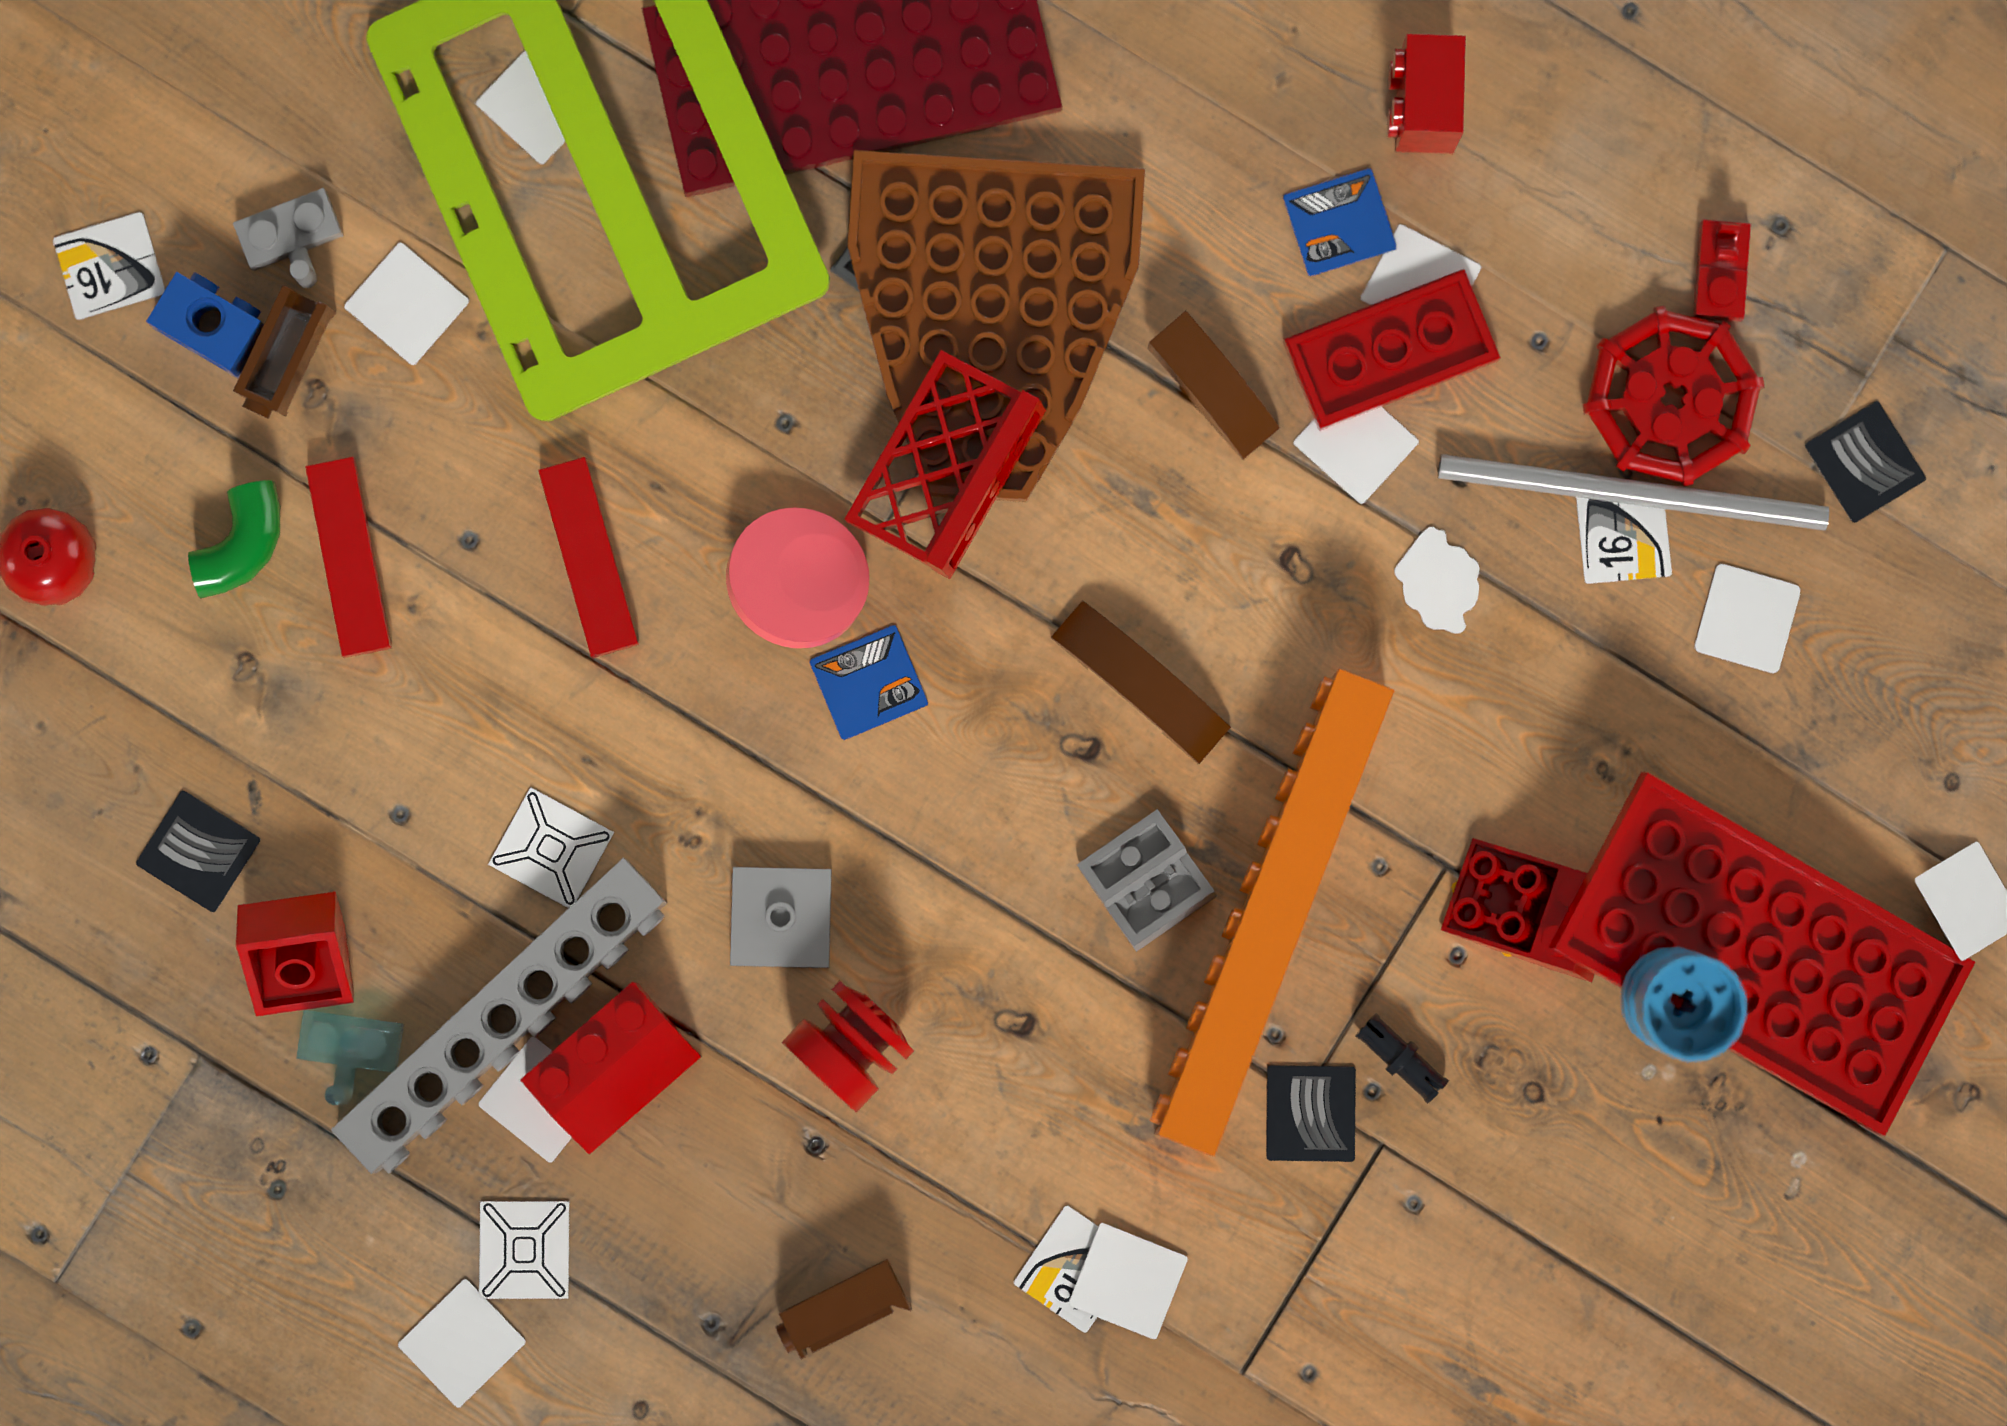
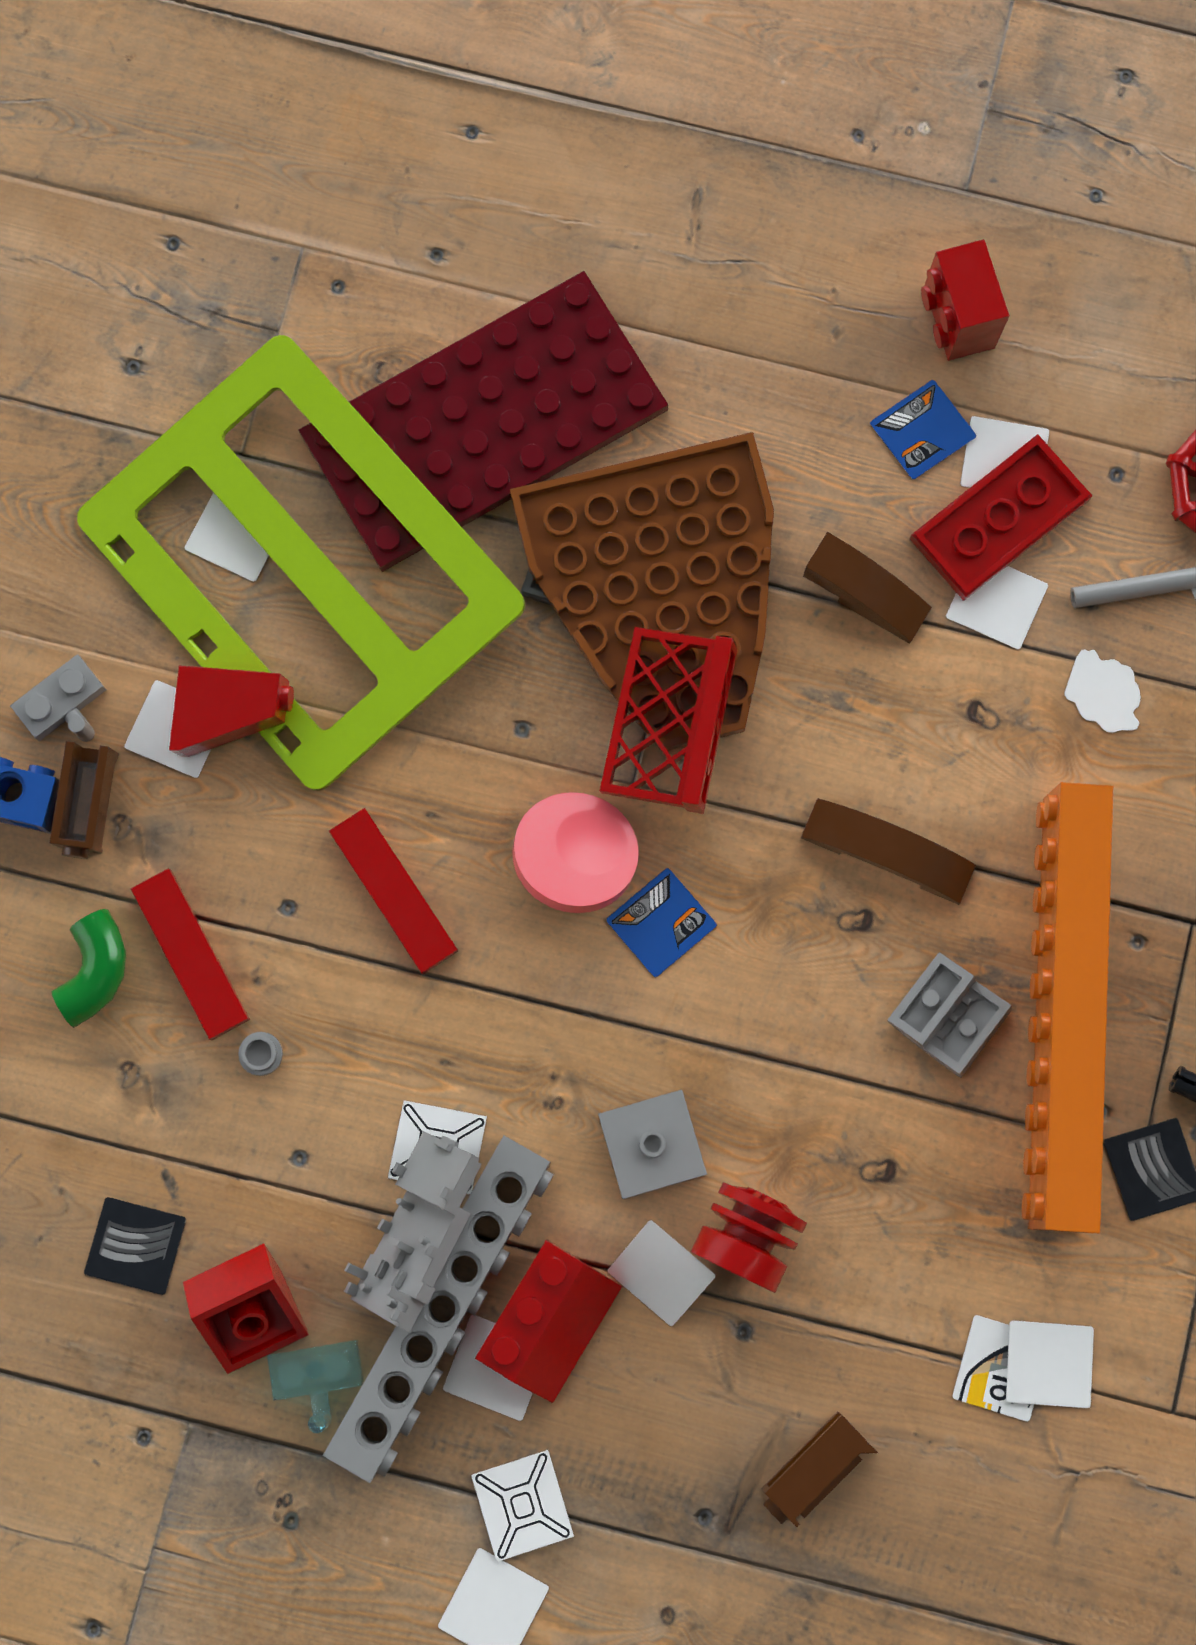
camera: 15 degrees left, 5 degrees down
(392, 689) = (260, 1053): none -> light grey plate
(466, 298) = (225, 706): none -> red slope
(503, 933) = (421, 1233): none -> light grey piece
(745, 1055) = (661, 1273): none -> white sticker

